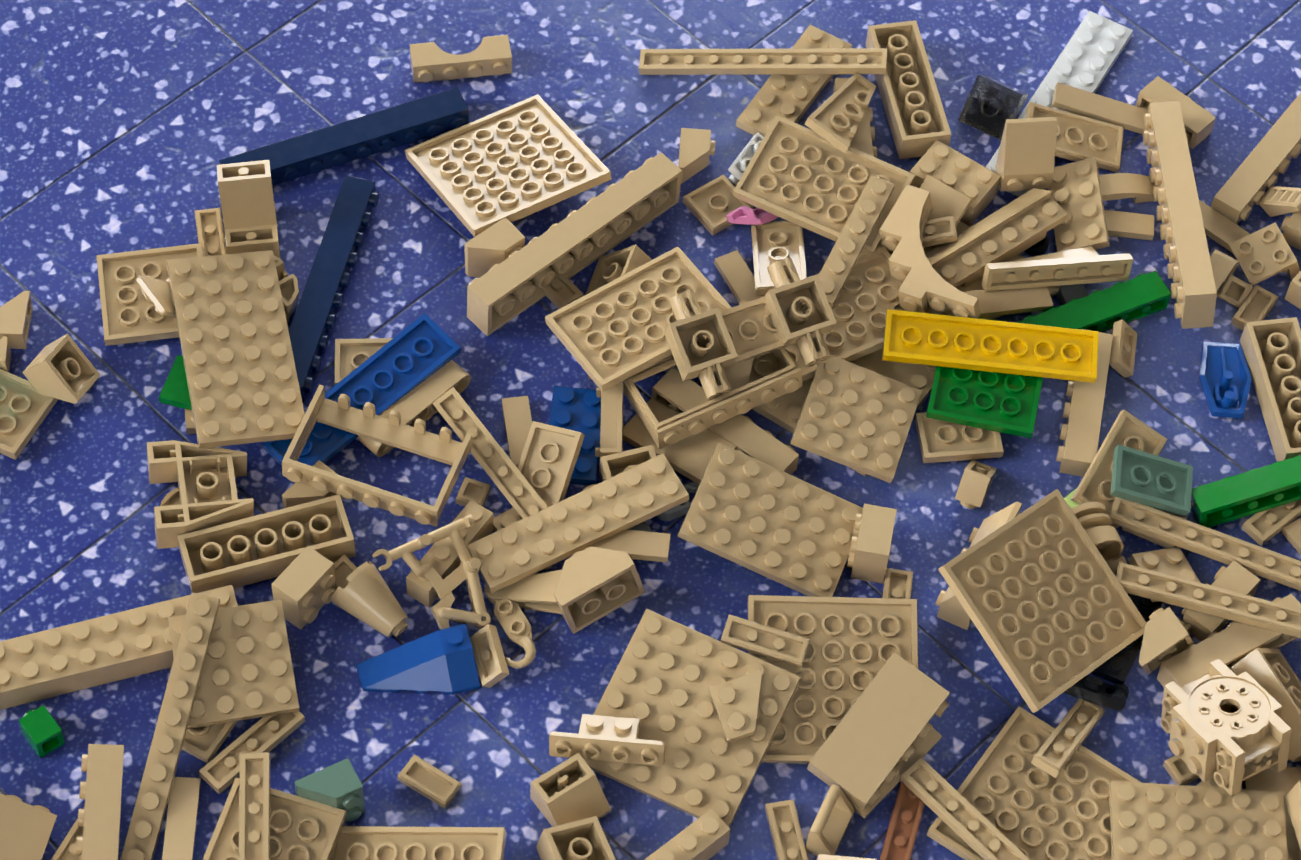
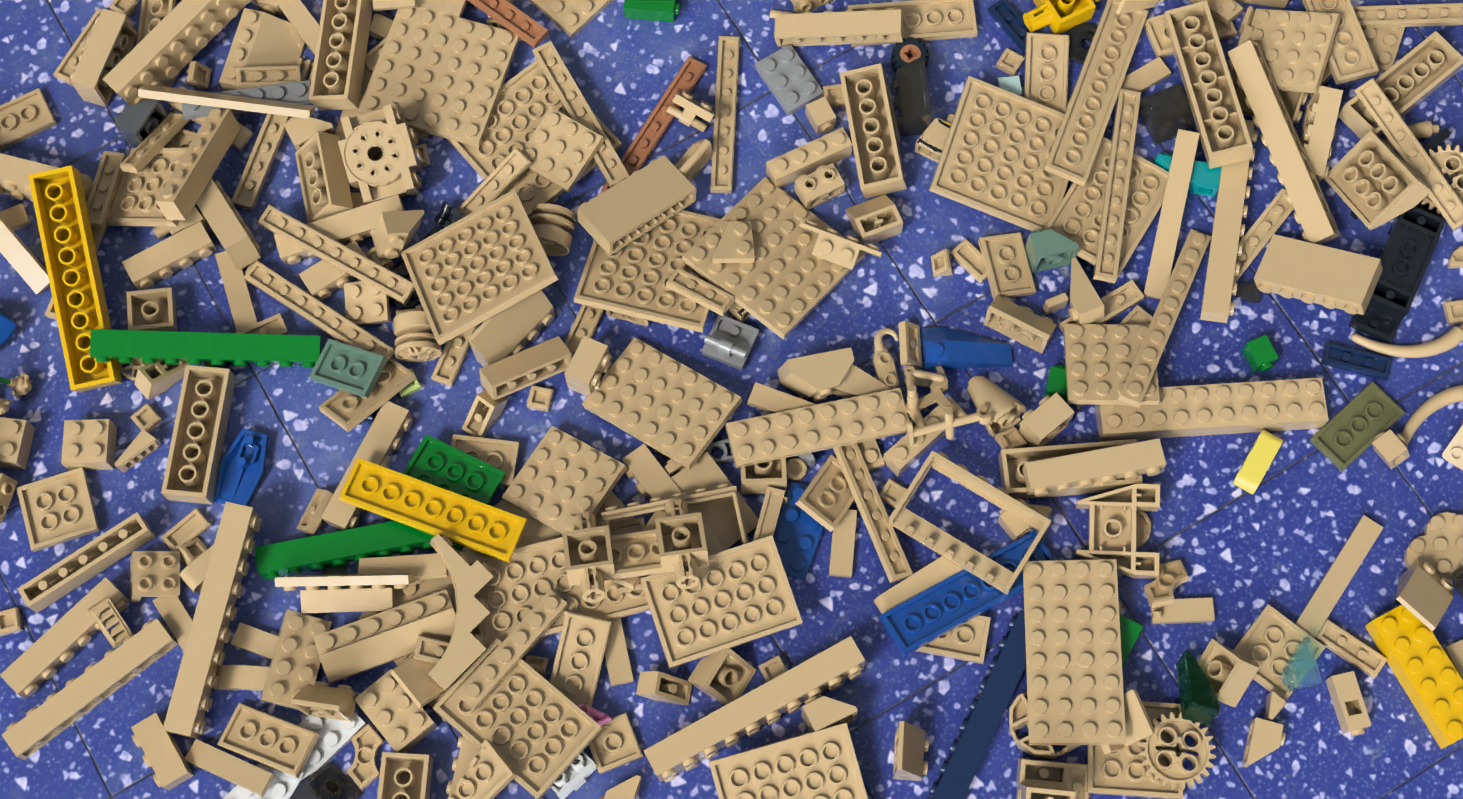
camera: 160 degrees left, 15 degrees up
(36, 603) = (1257, 461): none -> light yellow beam
(65, 810) = (1248, 292): none -> clear smoke tile
(91, 335) = (1196, 693): none -> clear green slope
(106, 279) = (1174, 772): none -> tan gear
(114, 437) = (1184, 611): none -> tan hinge
(131, 463) = (1162, 588): none -> tan tile
(238, 530) = (1094, 467): none -> tan brick
(278, 735) = (1084, 300): none -> tan slope
(299, 644) = (1056, 382): none -> green brick
(313, 741) = (1055, 303): none -> tan tile
(355, 700) = (1019, 323): none -> tan slope
(386, 780) = (1007, 265): none -> tan tile
(400, 233) = (909, 752): none -> tan slope
(468, 767) = (941, 263): none -> tan slope
(652, 824) = (819, 186): none -> tan brick
(691, 244) = (664, 687): none -> tan slope
(709, 610) = (730, 342): none -> light grey plate
(820, 251) = (539, 664): none -> tan slope
(919, 516) = (540, 398): none -> tan tile
(946, 525) = (525, 368): none -> tan brick
(966, 140) = (366, 746): none -> tan tile
(976, 691) = (554, 227): none -> tan wheel
(1002, 791) = (561, 149): none -> tan plate

